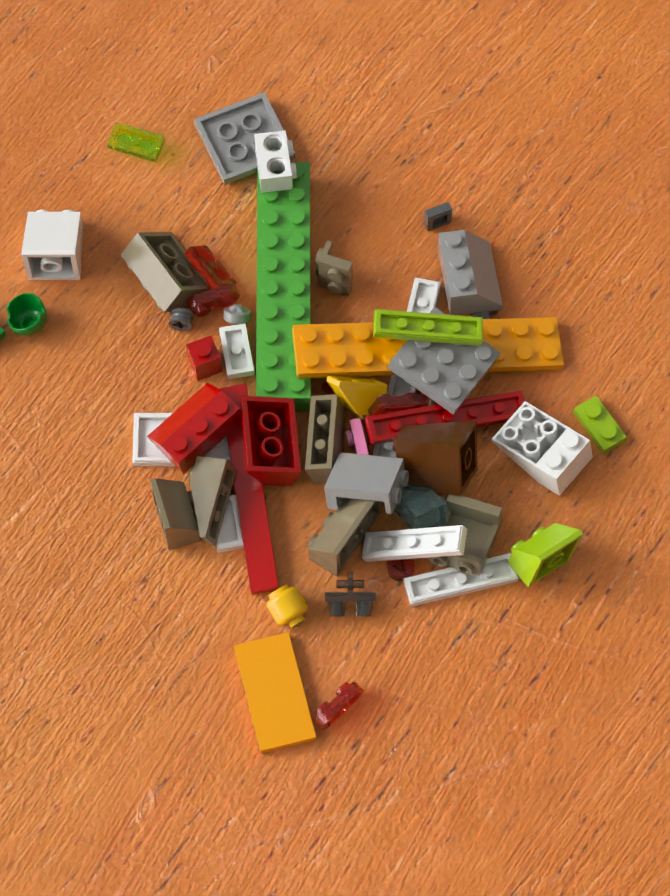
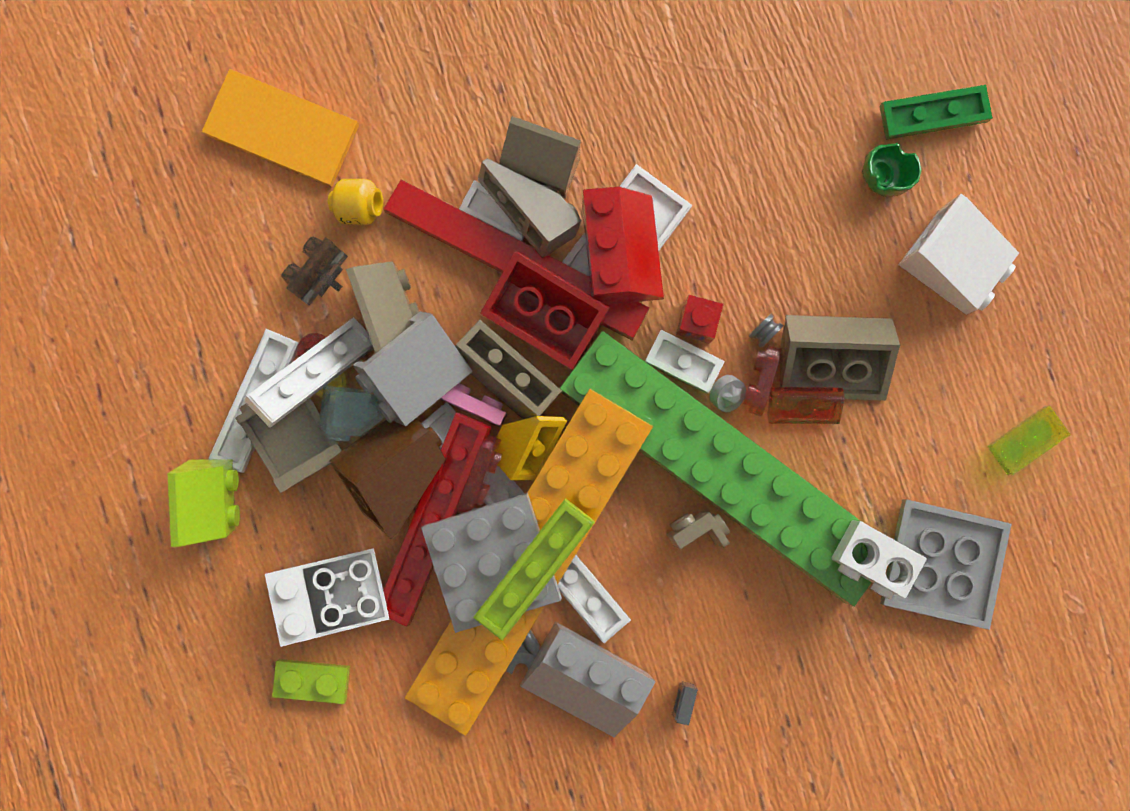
camera: 125 degrees right, 20 degrees up
(332, 711) = (216, 189): clear red plate -> none

